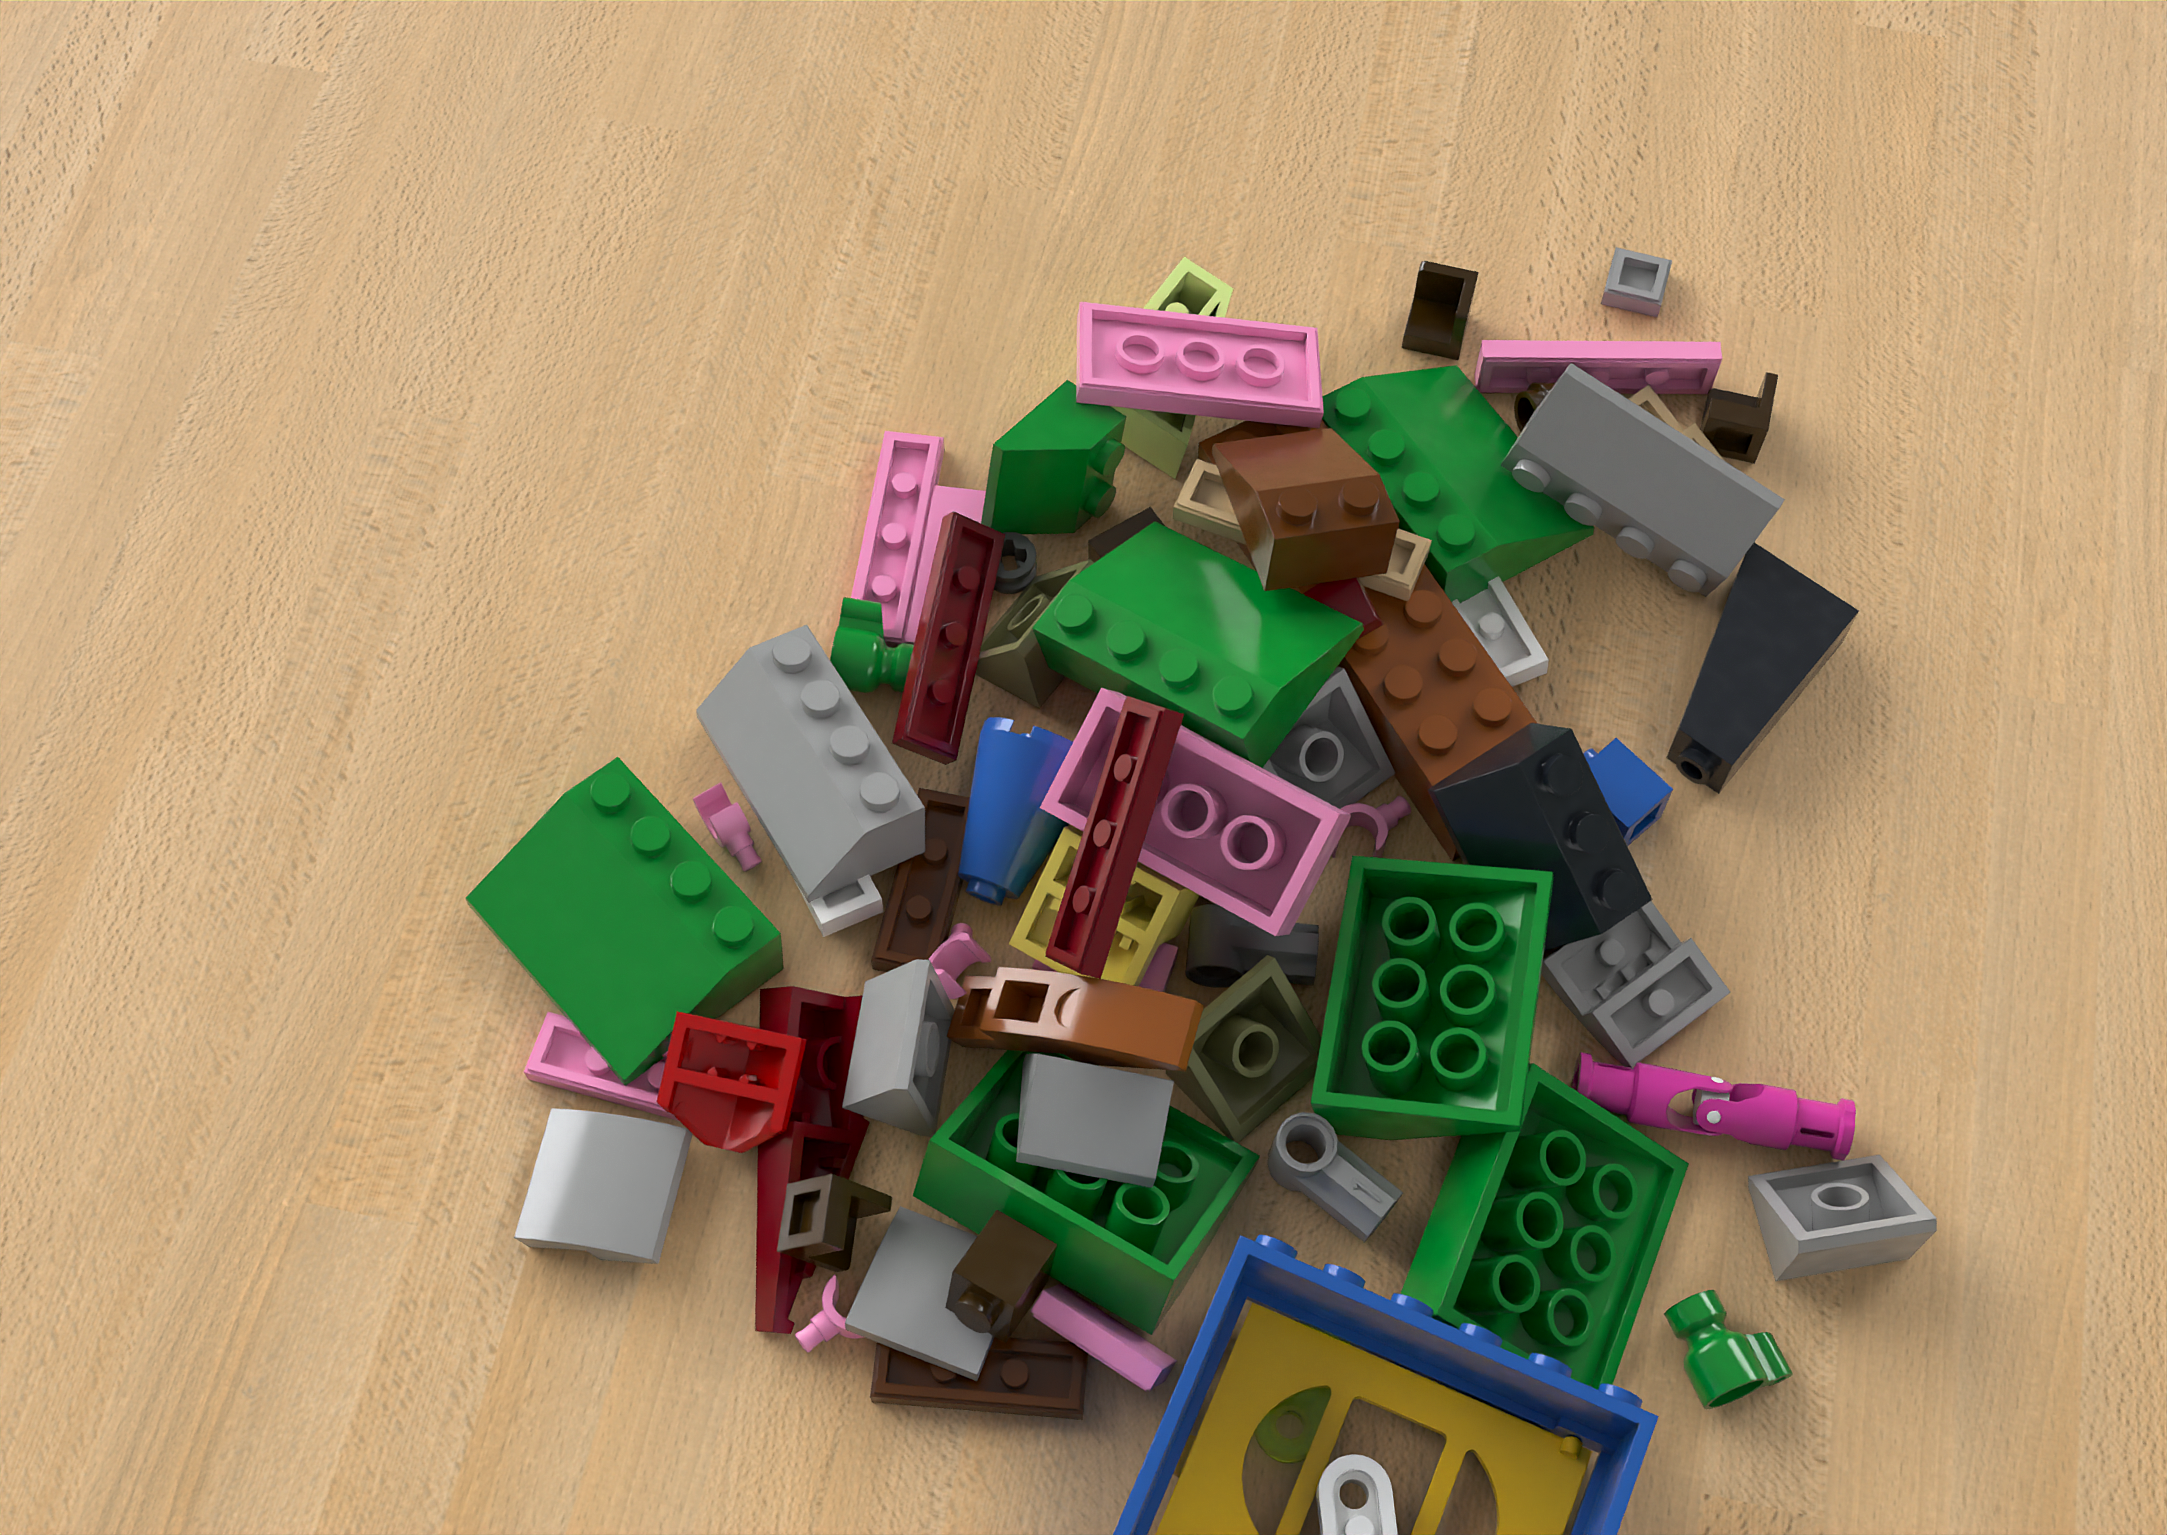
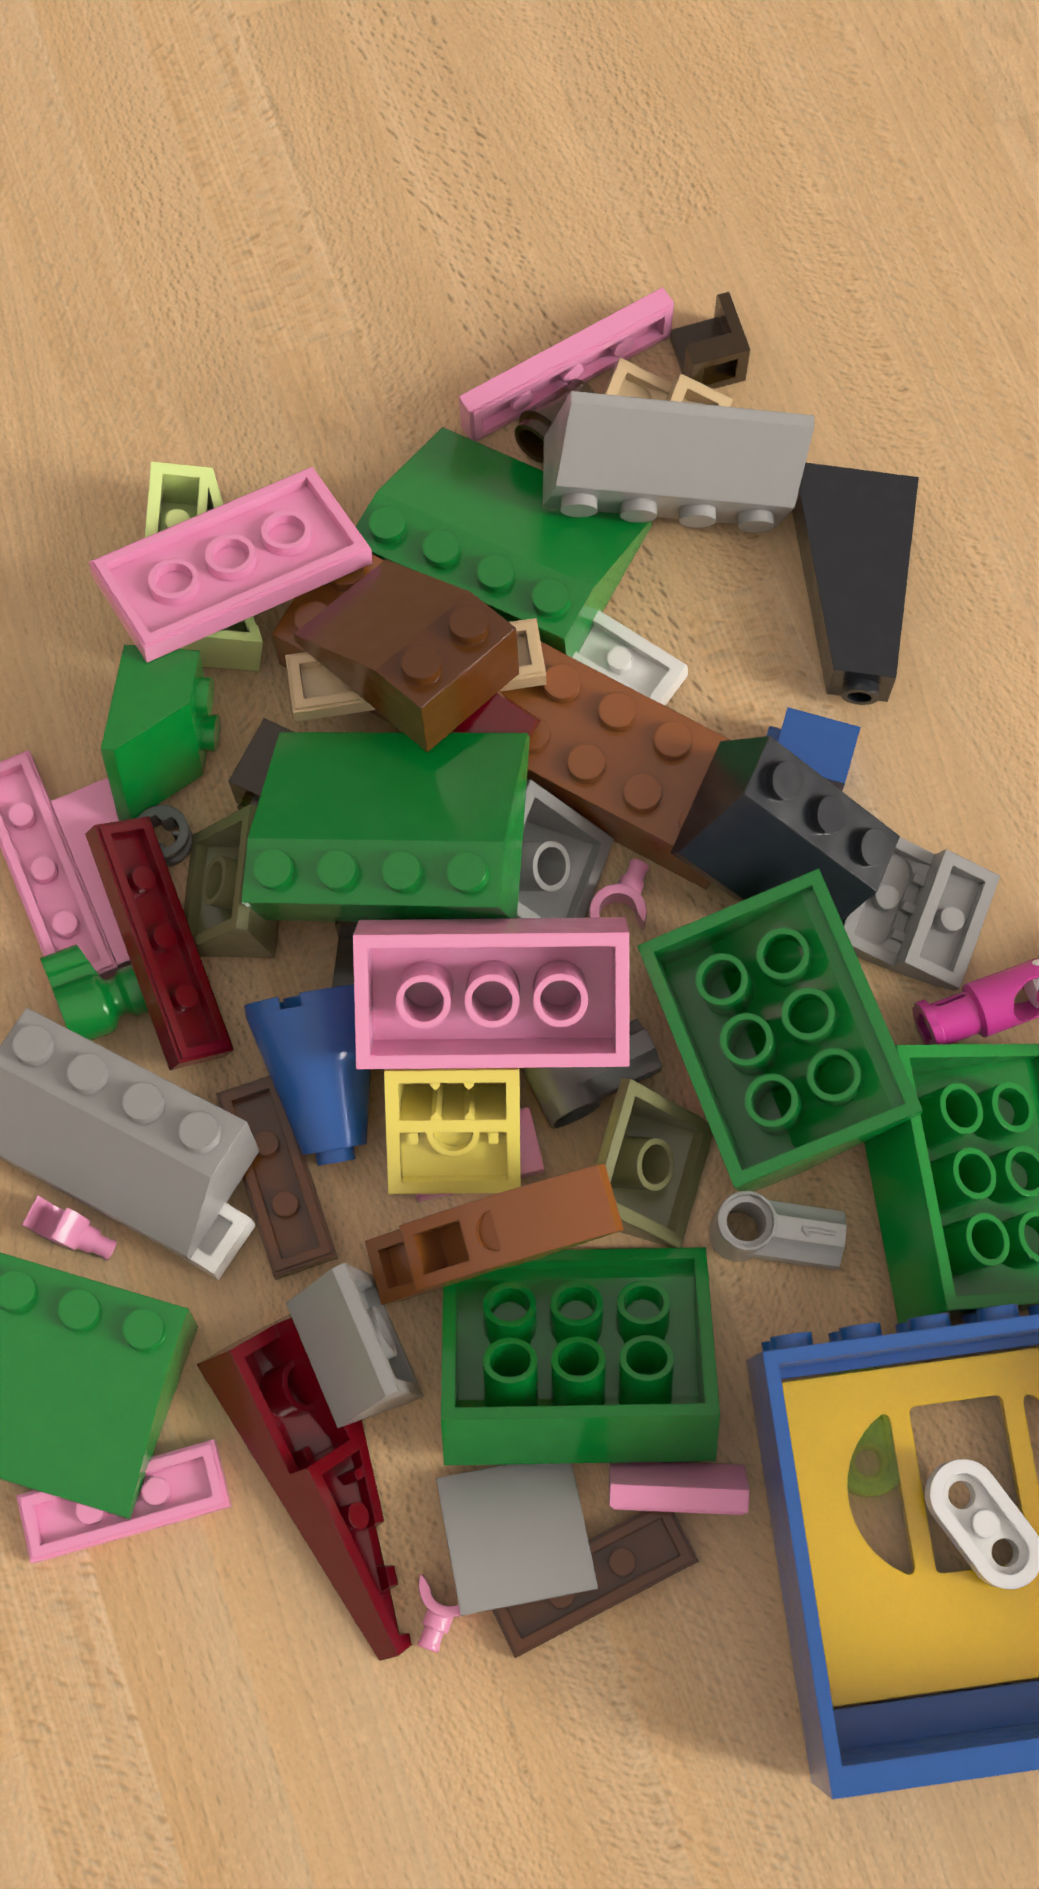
camera: 30 degrees left, 10 degrees up
(604, 1185) = (169, 1620): light grey slope -> none
(730, 1081) = (225, 1462): red slope -> none
(823, 1217) = (381, 1536): dark brown panel -> none
(955, 956) = (343, 1232): bright pink piece -> none
(1000, 1276) = (568, 1496): dark brown brick -> none
(1092, 1119) = (557, 1310): light grey slope -> none
(1113, 836) = (443, 1061): dark red tile -> none
(1440, 310) = (400, 384): dark brown panel -> none
(1636, 282) = (550, 262): light grey tile -> none

